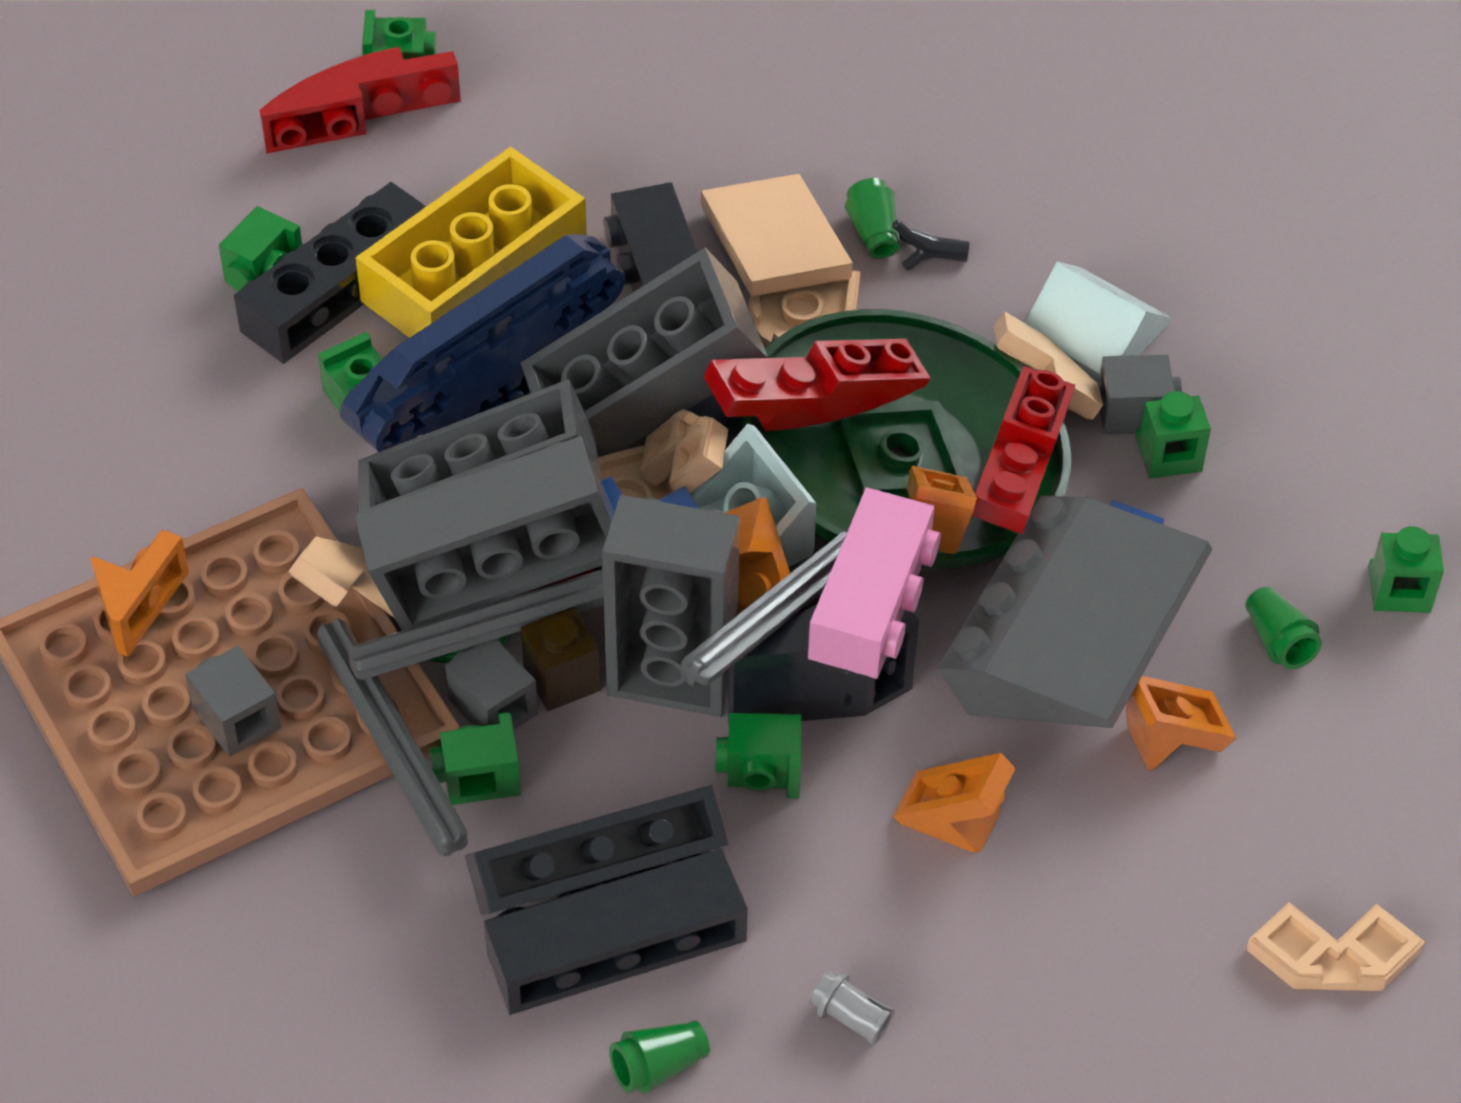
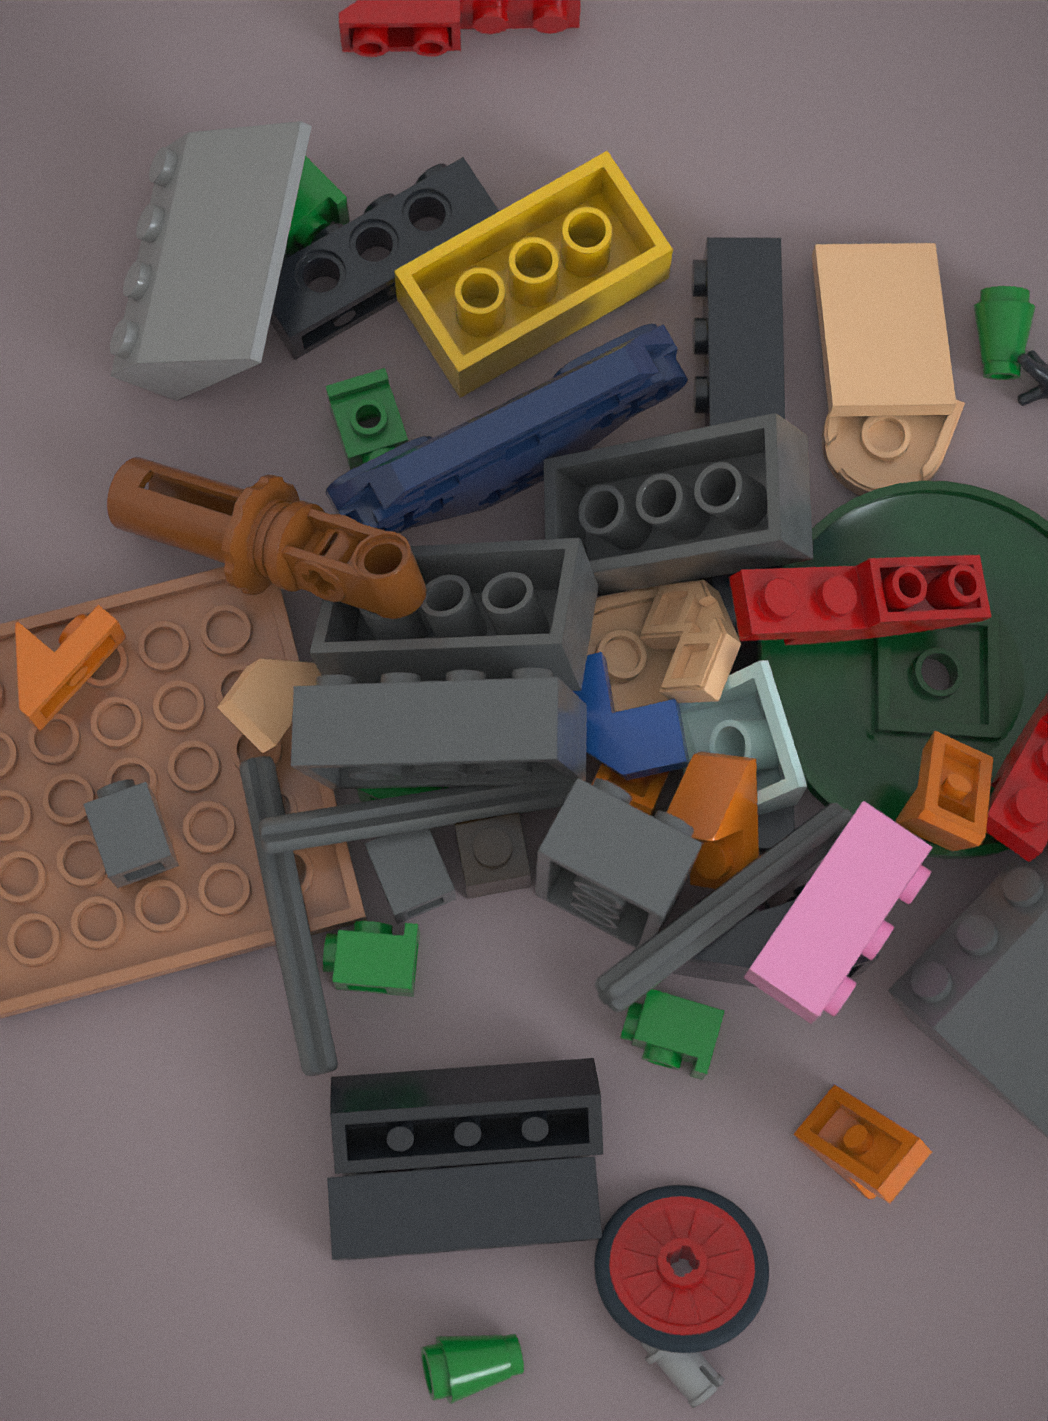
camera: 15 degrees right, 25 degrees up
(194, 282) = (209, 257): none -> light grey slope
(298, 453) = (268, 537): none -> dark orange piece
(827, 930) = (671, 1310): none -> red wheel

